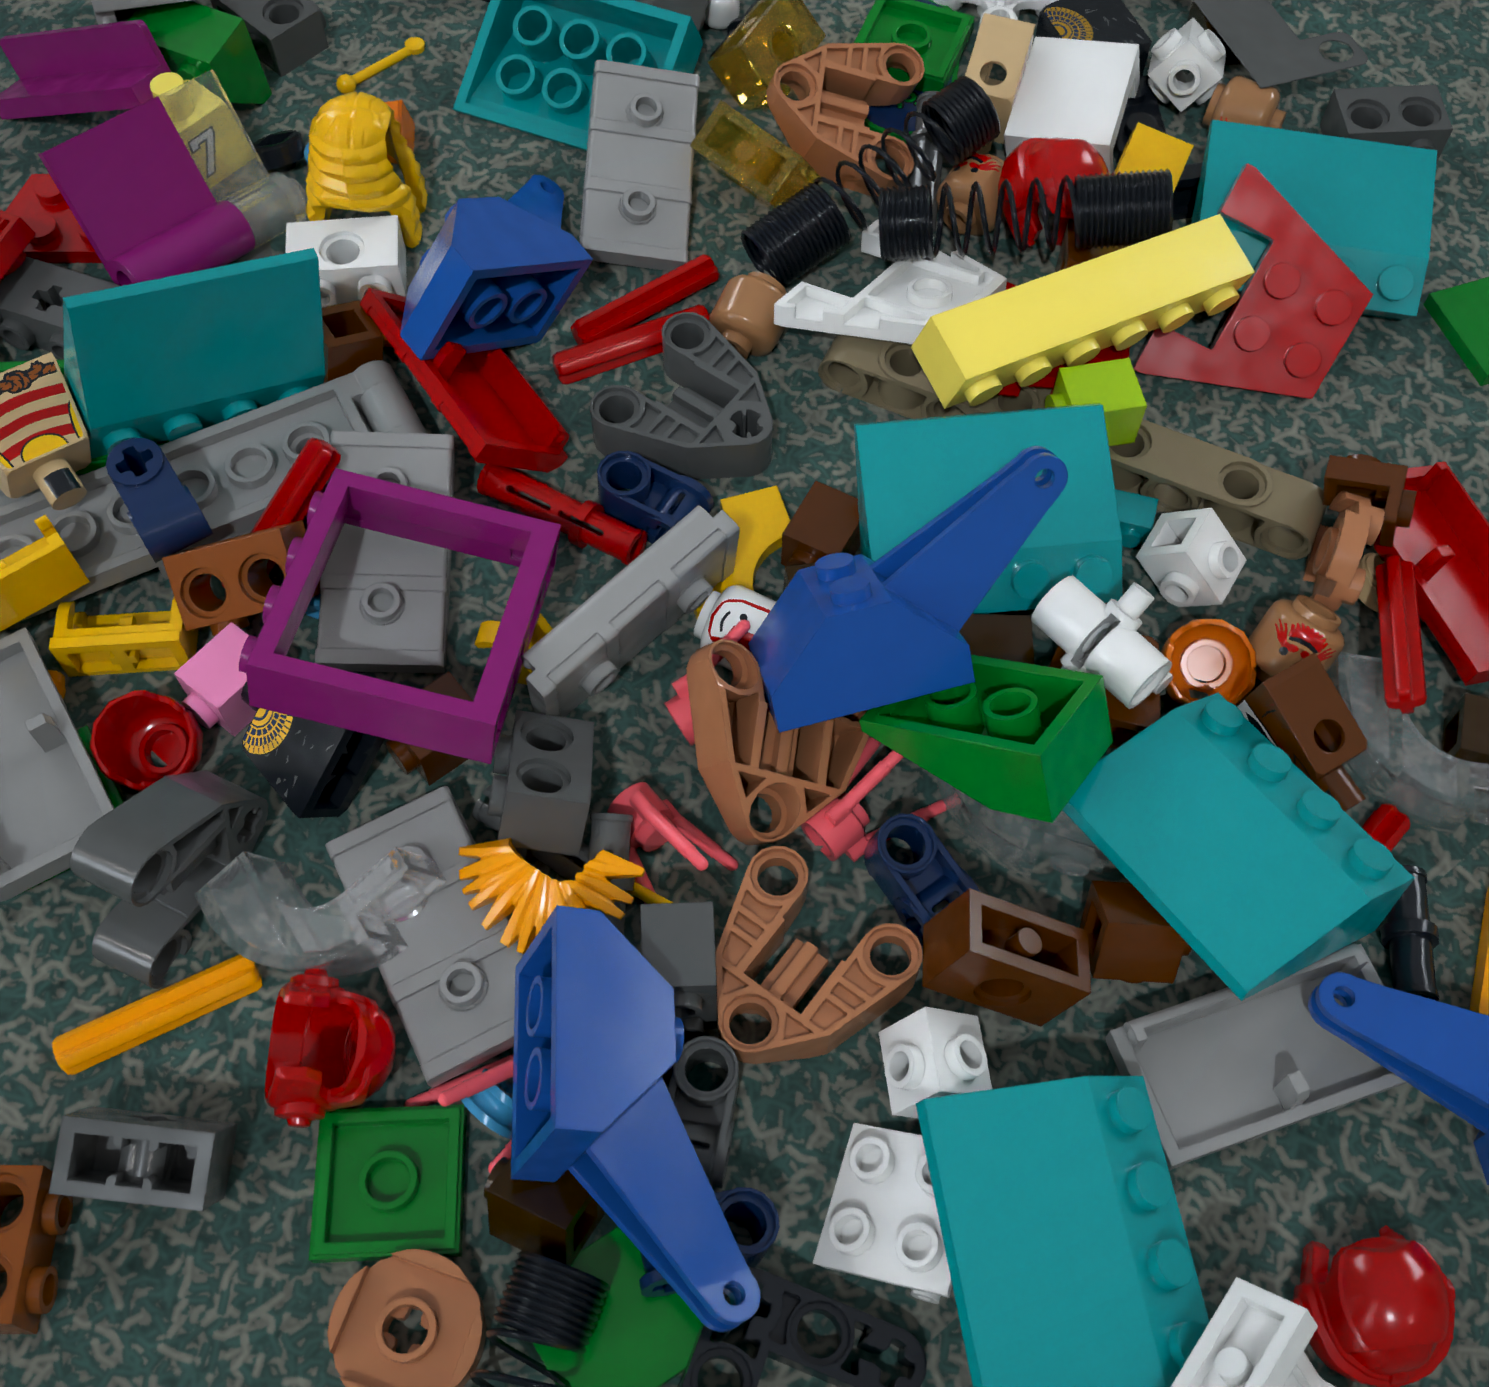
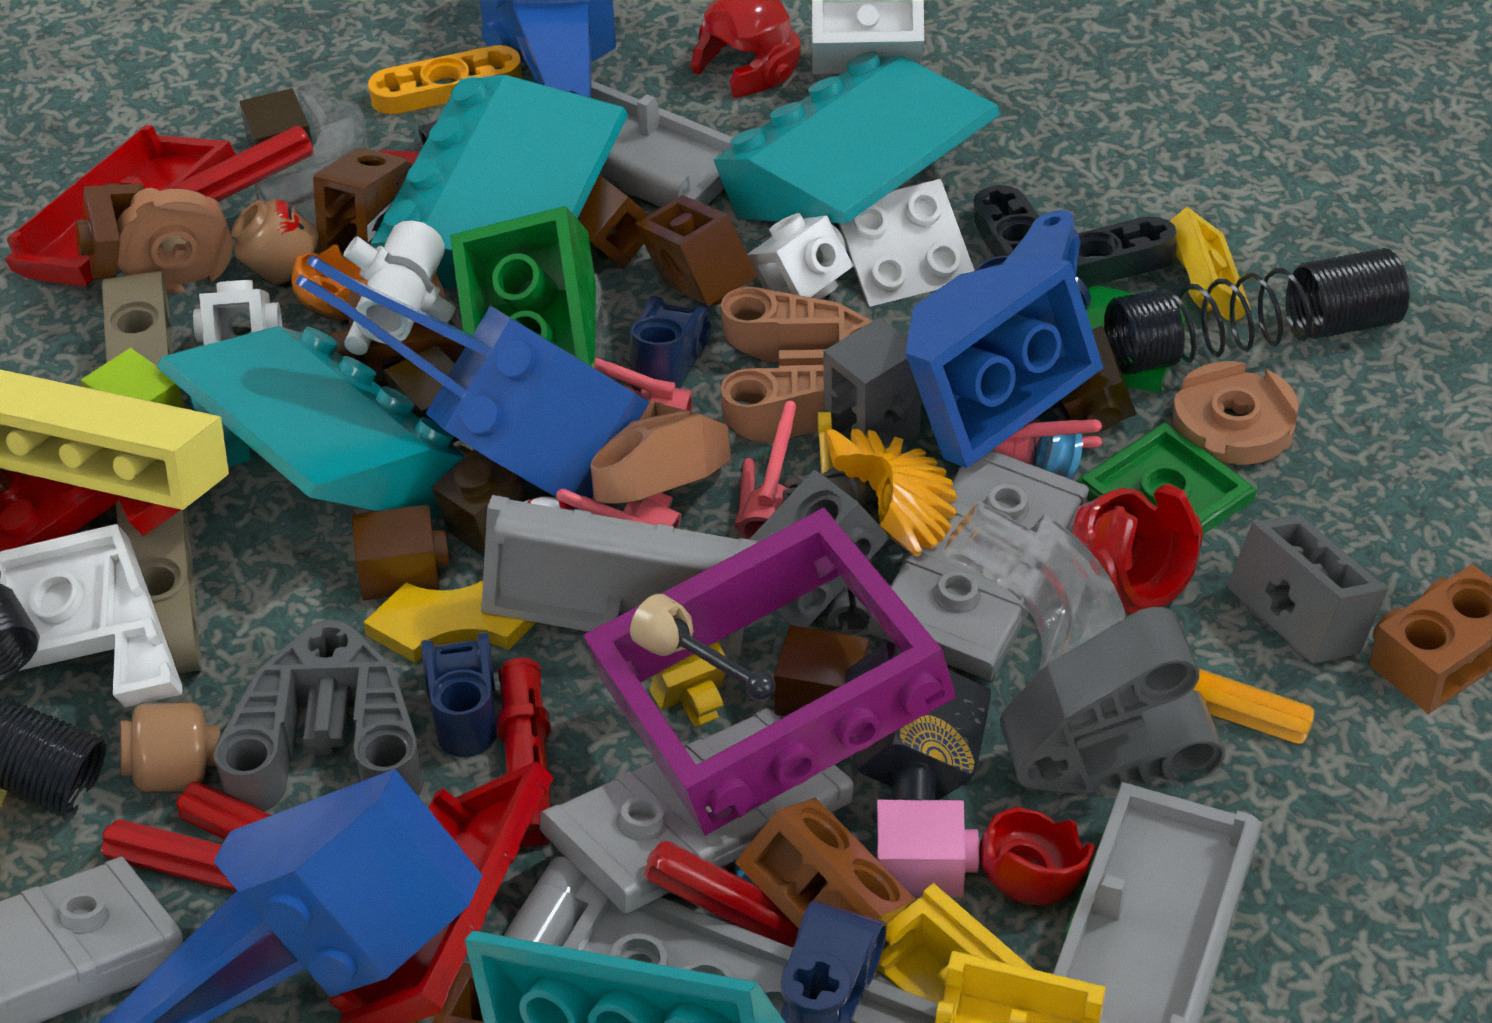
camera: 125 degrees left, 15 degrees down
(479, 542) = (666, 628): none -> hinge

